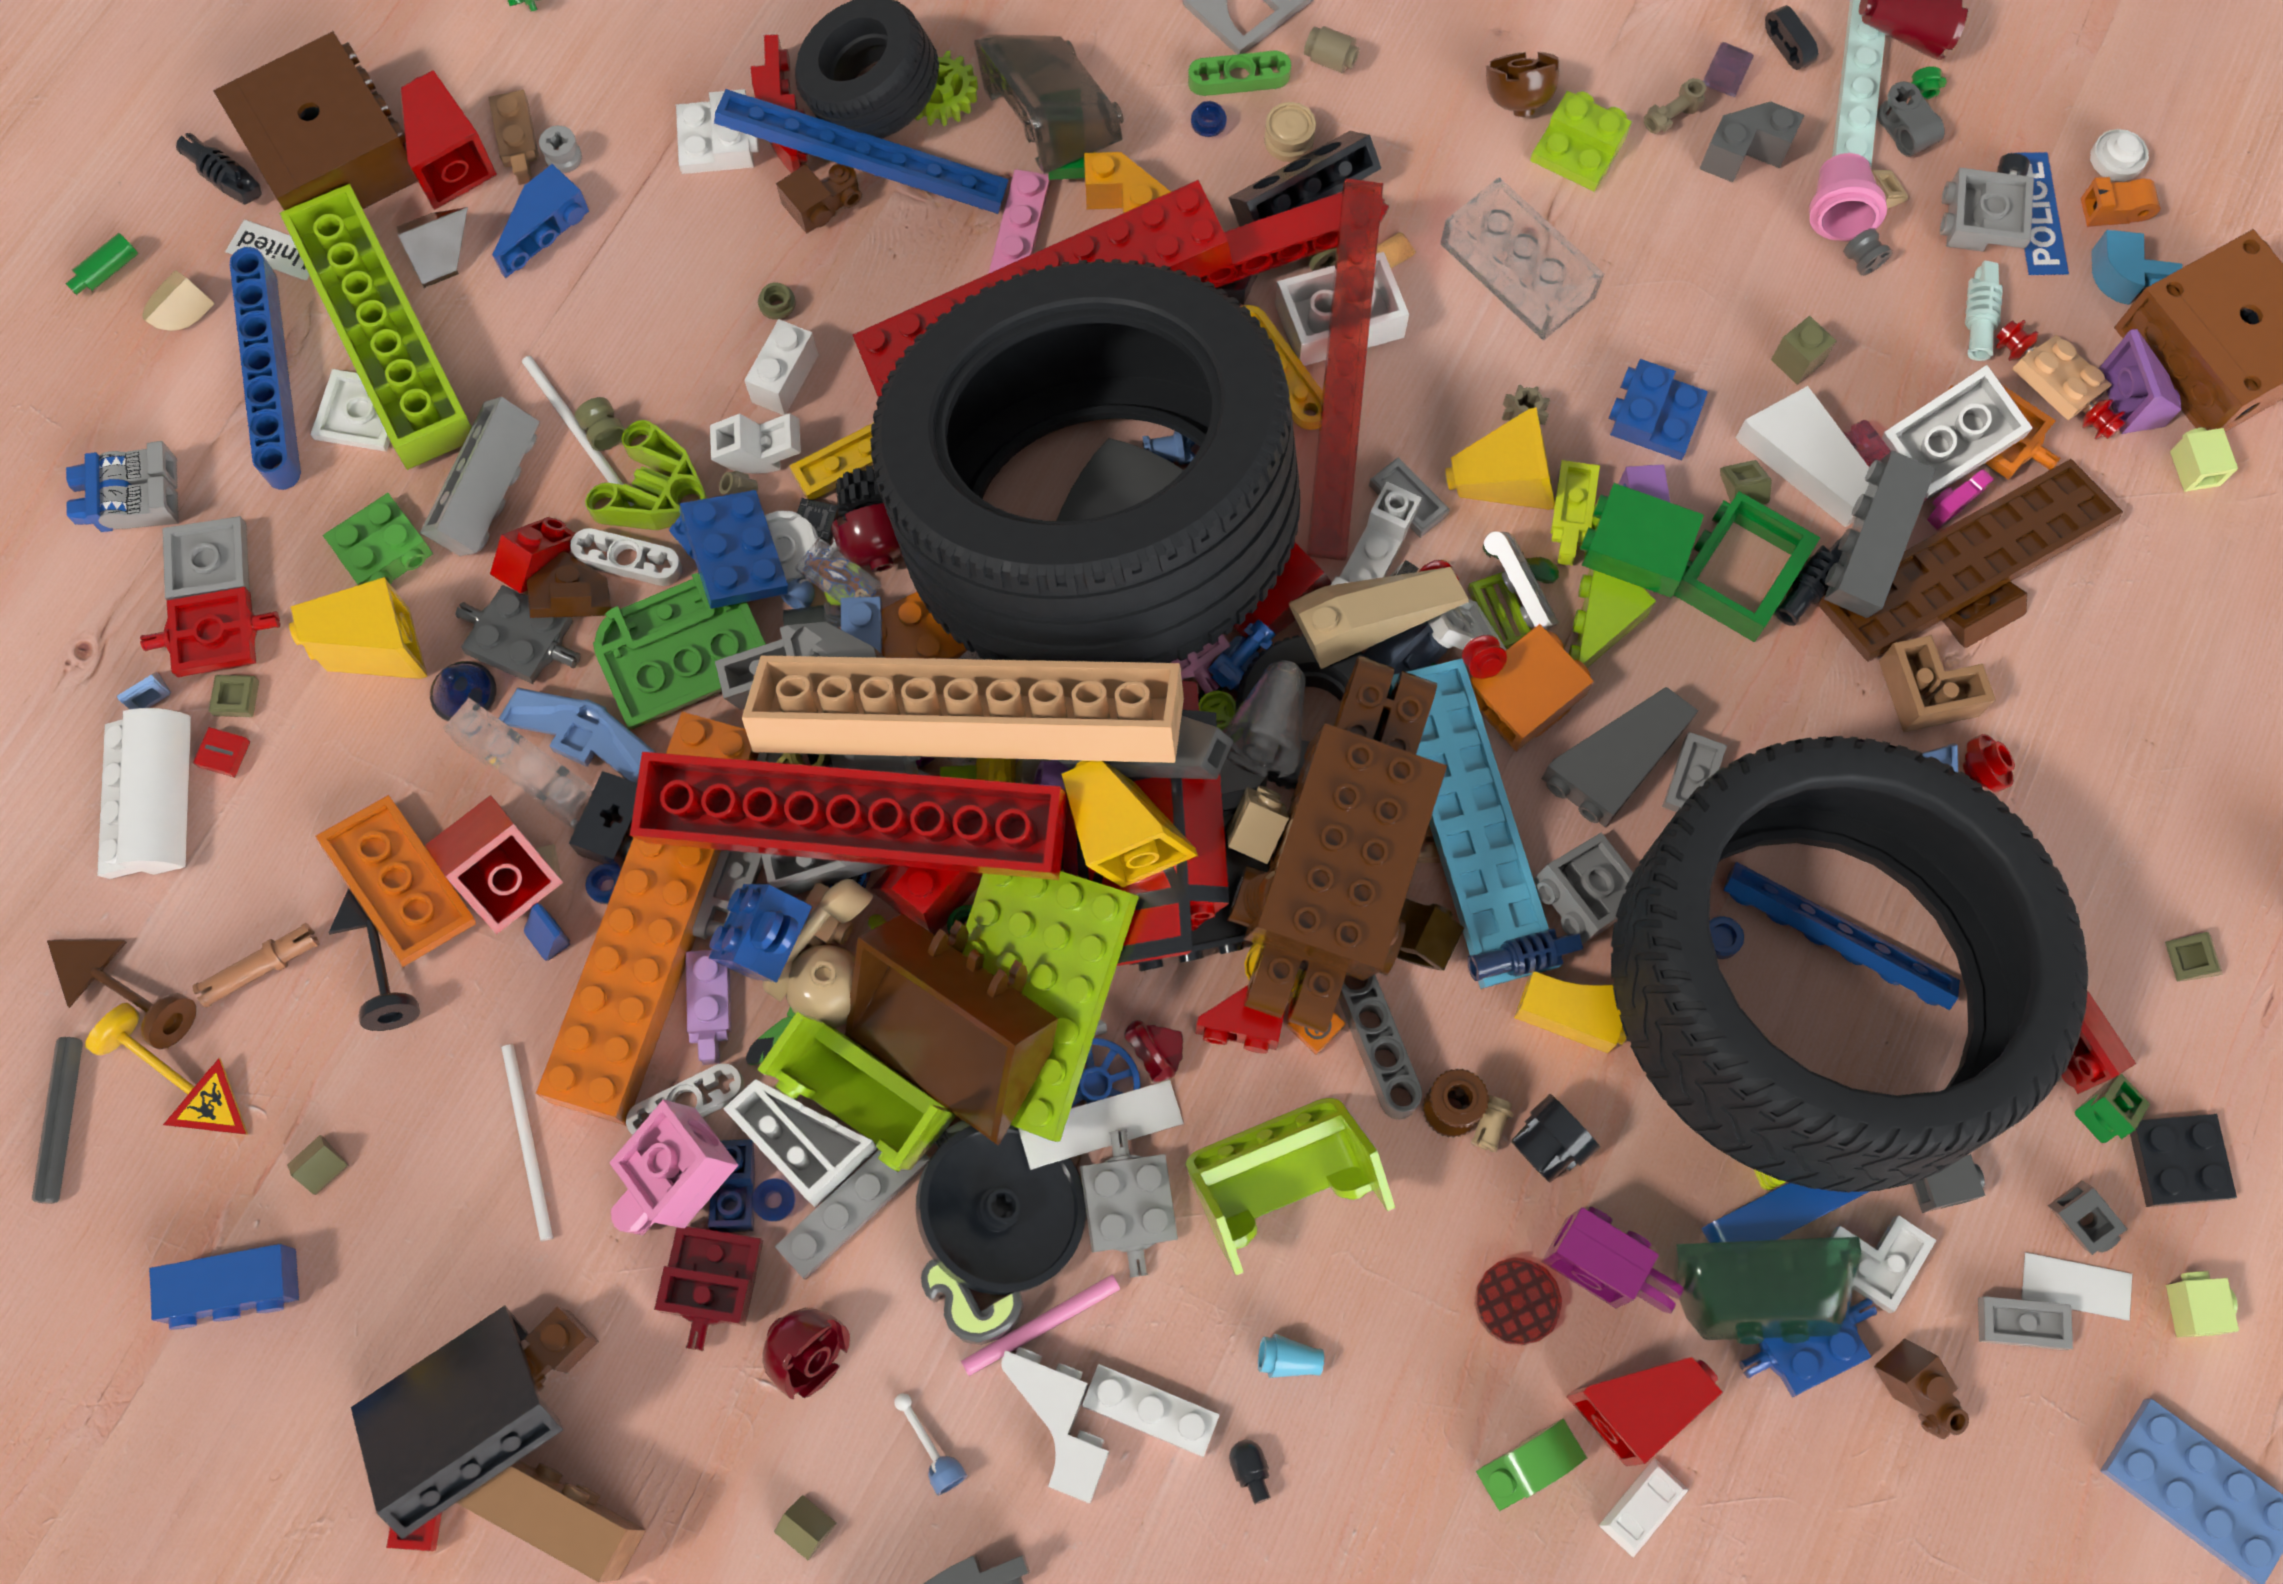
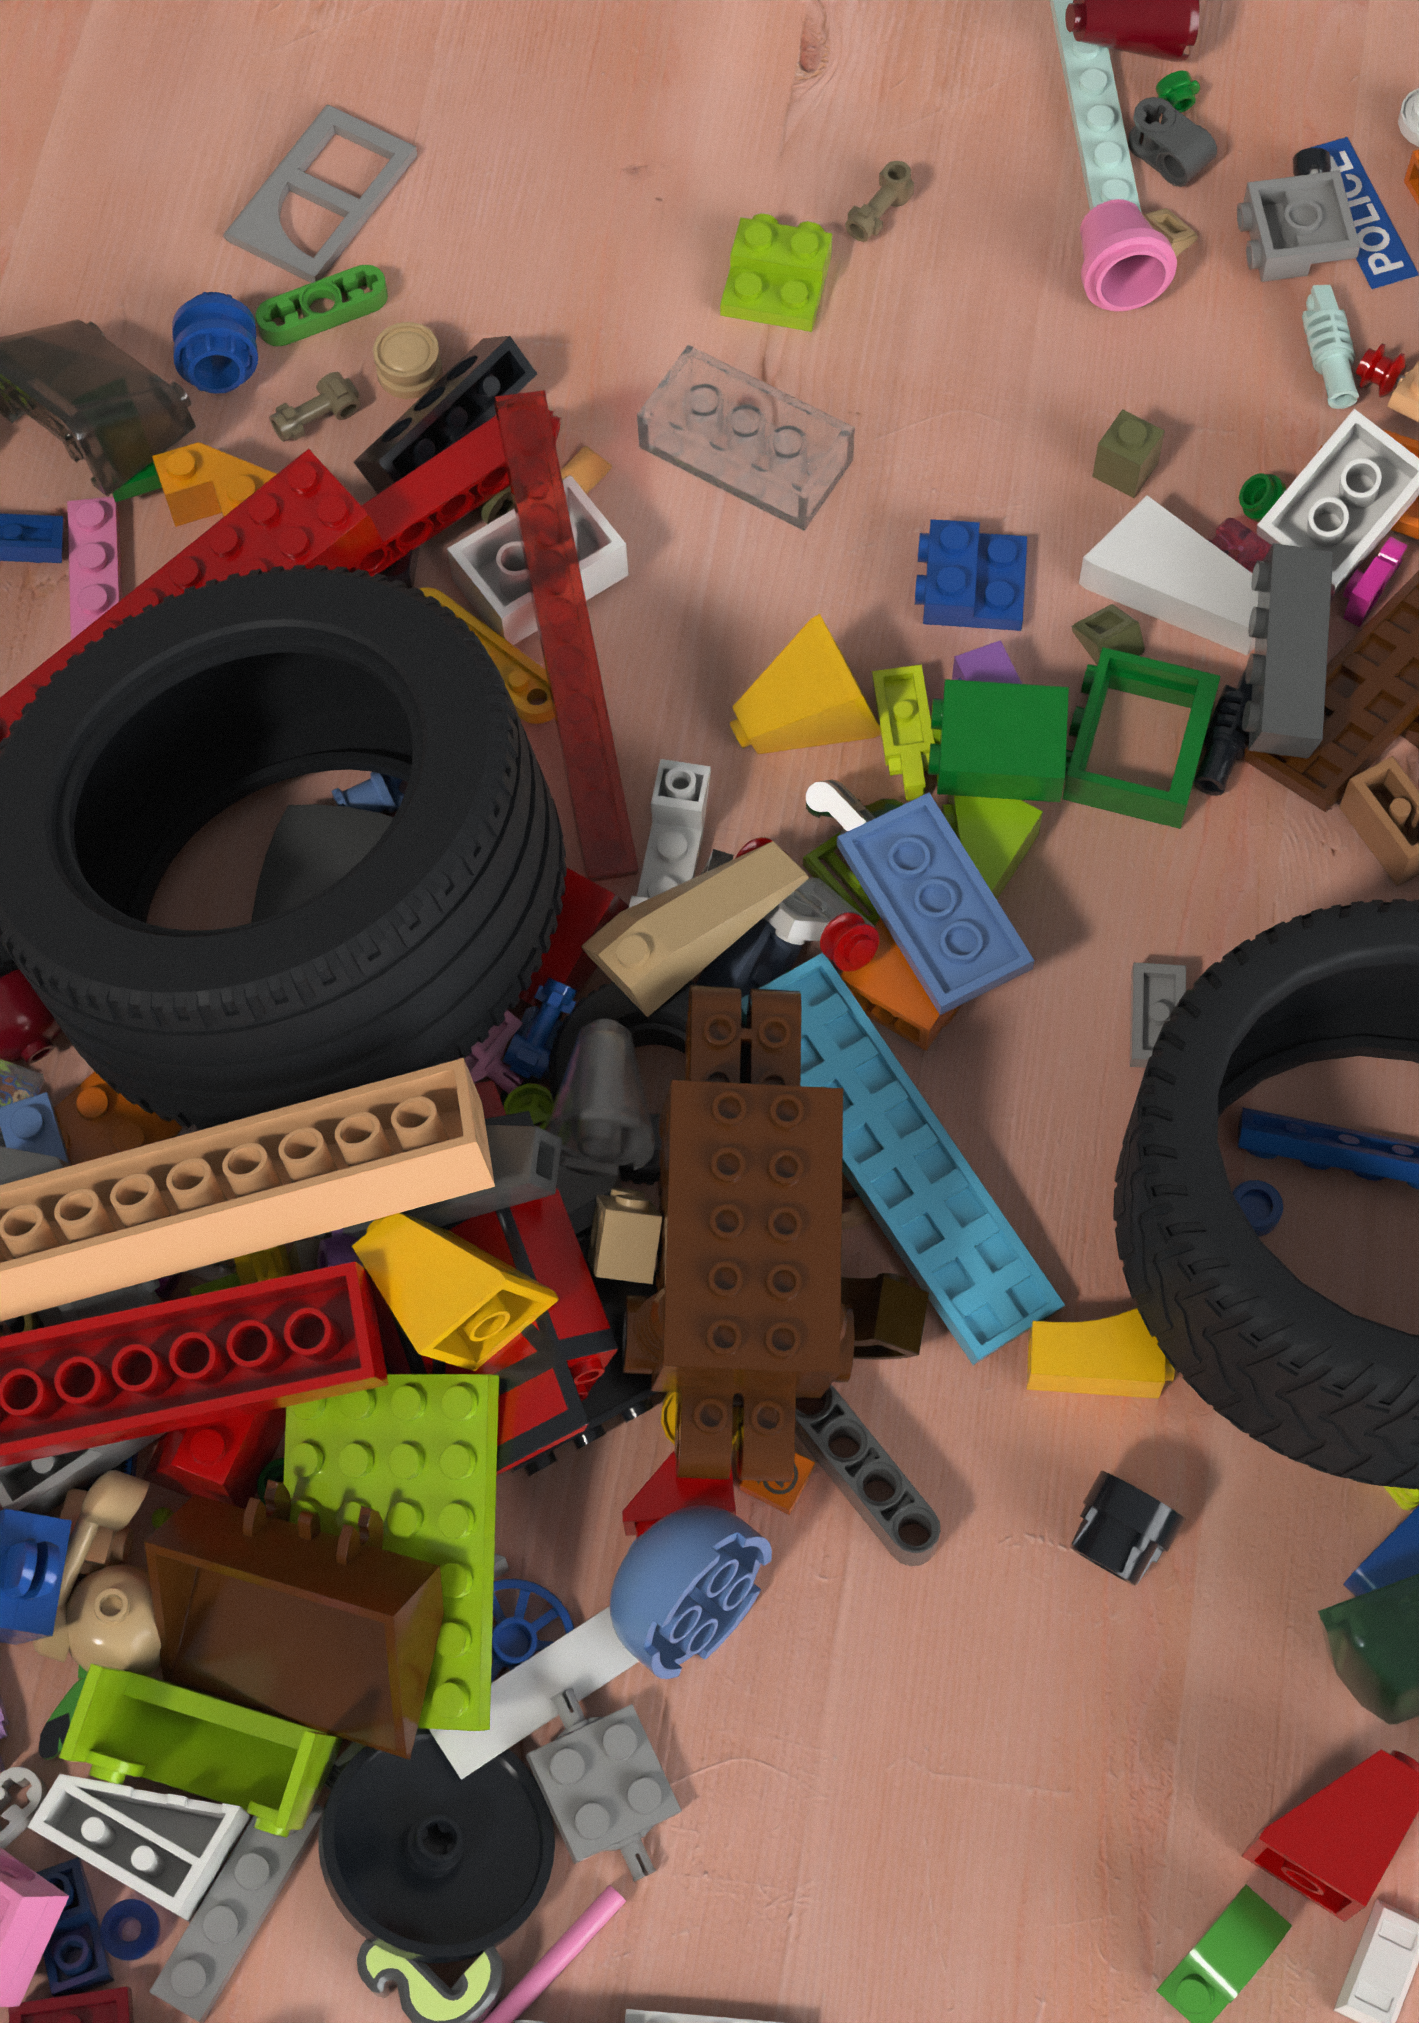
camera: 15 degrees left, 5 degrees down
(1153, 80) = (214, 342): none -> blue piece
(1157, 1048) = (580, 1568): dark red piece -> none
(1208, 111) = (297, 362): clear blue plate -> none
(1227, 1084) = (686, 1586): none -> medium blue cylinder
(1230, 143) = (335, 395): none -> dark tan bar
(1280, 1165) = (789, 1670): lime windscreen -> none
(1288, 1358) = (871, 1920): medium azure cone -> none
(1331, 49) = (430, 244): dark tan brick -> none
(1431, 508) = (726, 777): light grey tile -> none
(1465, 1088) = (989, 1497): reddish brown hose -> none
(1492, 1124) = (1039, 1532): tan pin -> none
(1518, 1301) = (1142, 1752): clear red tile -> none
(1522, 82) = (682, 222): reddish brown cylinder -> none
(1524, 955) = (1014, 1304): dark blue hinge -> none
(1525, 399) = (801, 610): dark tan gear -> none
(1555, 646) = (935, 903): none -> medium blue plate
(1585, 887) = (1065, 1196): light grey plate -> none
(1609, 1261) = (1242, 1662): magenta brick -> none
(1616, 759) = (1054, 1023): dark grey slope -> none
(1728, 69) = (931, 139): clear purple slope -> none
(1758, 132) = (989, 205): dark grey brick -> none
(1791, 37) = (996, 81): black beam -> none
(1867, 251) = (1169, 313): dark grey wheel -> none
(1894, 409) = (1260, 495): none -> green plate

